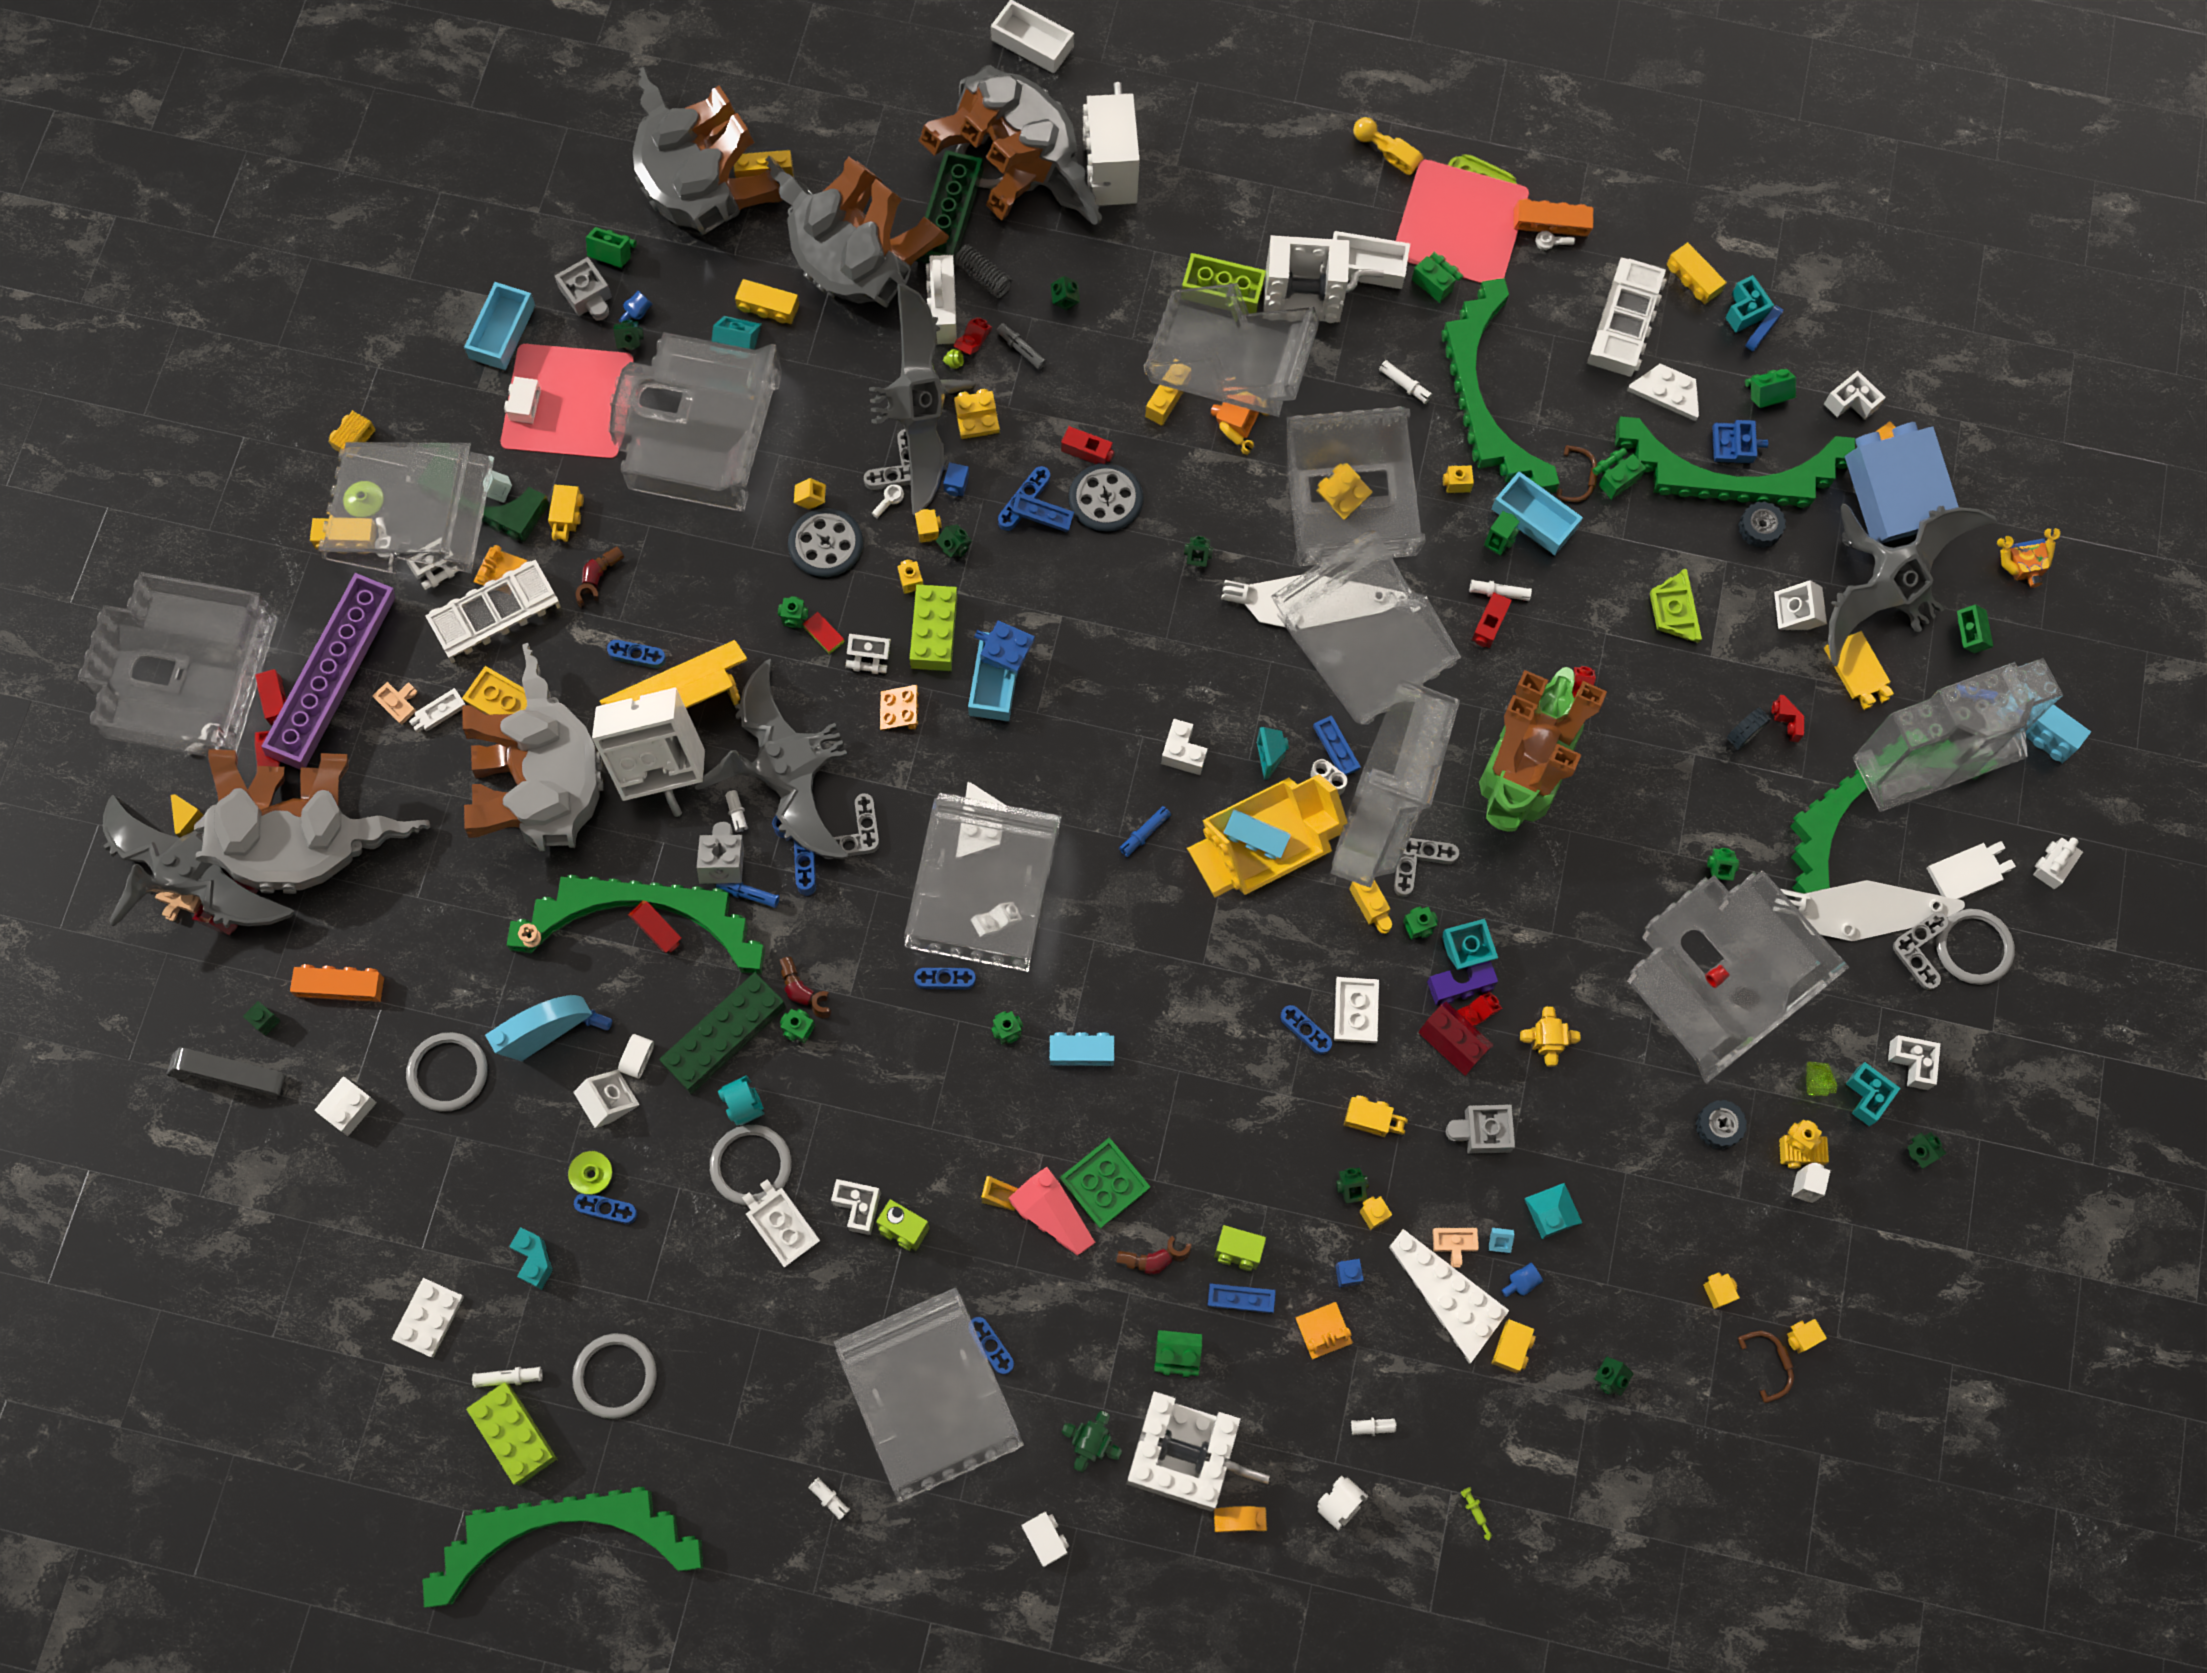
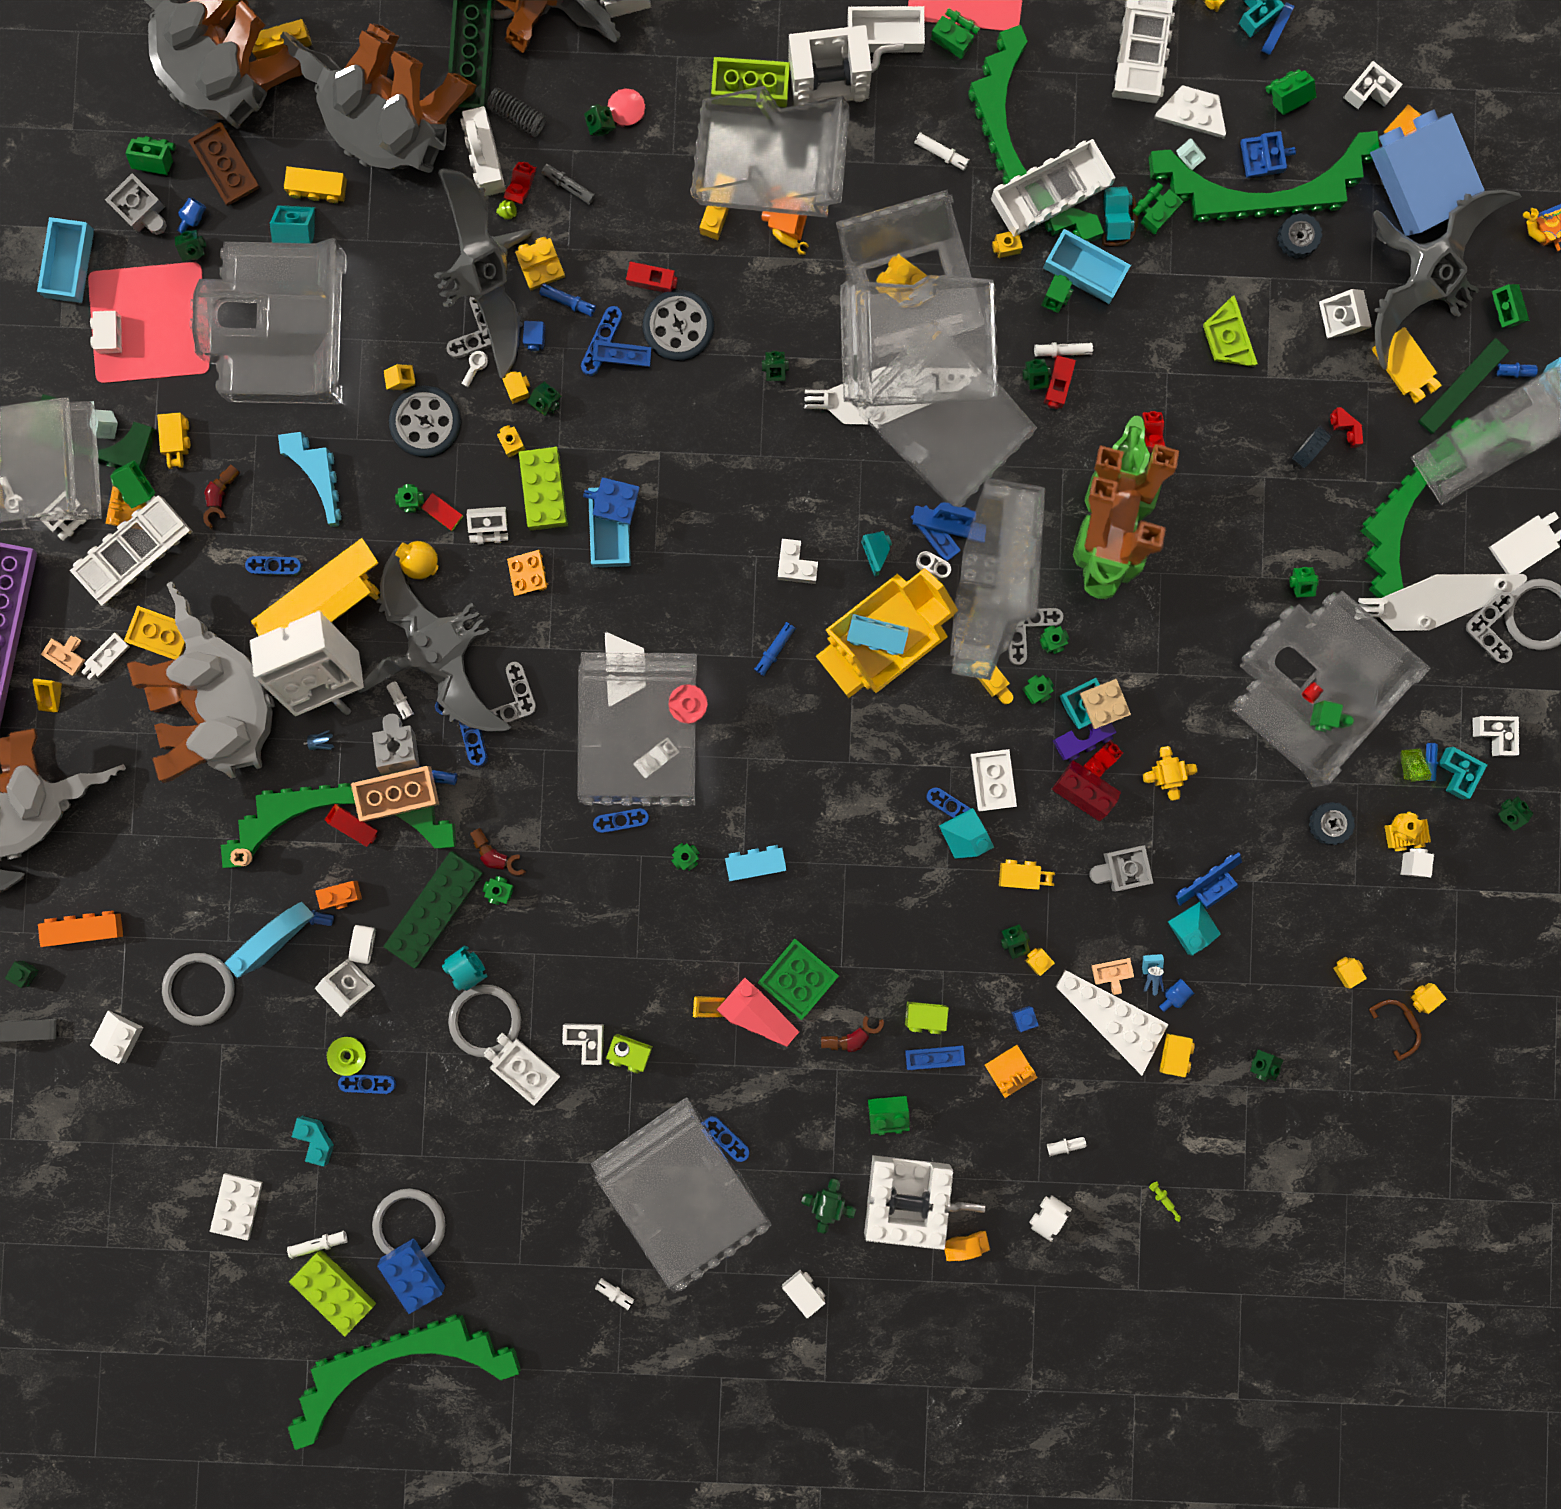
camera: 10 degrees left, 15 degrees up
(368, 736) = (47, 694): none -> yellow slope
(511, 545) = (132, 484): none -> green brick
(604, 1430) = (411, 1276): none -> blue brick
(623, 998) = (338, 895): none -> orange brick
(635, 835) = (315, 741): none -> flat silver piece
(680, 268) = (224, 163): none -> reddish brown plate
(704, 563) = (318, 466): none -> medium azure arch
(709, 899) = (395, 794): none -> light nougat brick
(787, 672) = (417, 559): none -> yellow brick
(994, 451) = (574, 302): none -> blue pin
(1042, 859) = (687, 703): none -> coral tile
(1094, 287) = (626, 107): none -> coral dish
(1317, 1061) = (966, 835): none -> teal slope
(1349, 729) = (945, 519): none -> blue bracket
(1352, 541) = (919, 341): none -> clear panel
(1441, 879) = (1047, 642): none -> green brick
(1469, 607) = (1036, 374): none -> dark green brick
(1490, 946) = (1105, 704): none -> tan plate
(1502, 1251) = (1154, 974): none -> flat silver piece
(1513, 430) = (1052, 187): none -> white window
(1575, 469) = (1116, 209): none -> teal brick
(1580, 1166) = (1213, 885): none -> blue bracket
(1660, 427) = (1191, 154): none -> light aqua panel
(1731, 1000) = (1329, 716): none -> green brick
(1839, 1075) = (1431, 759): none -> blue axle
(1947, 676) = (1463, 386): none -> dark green tile

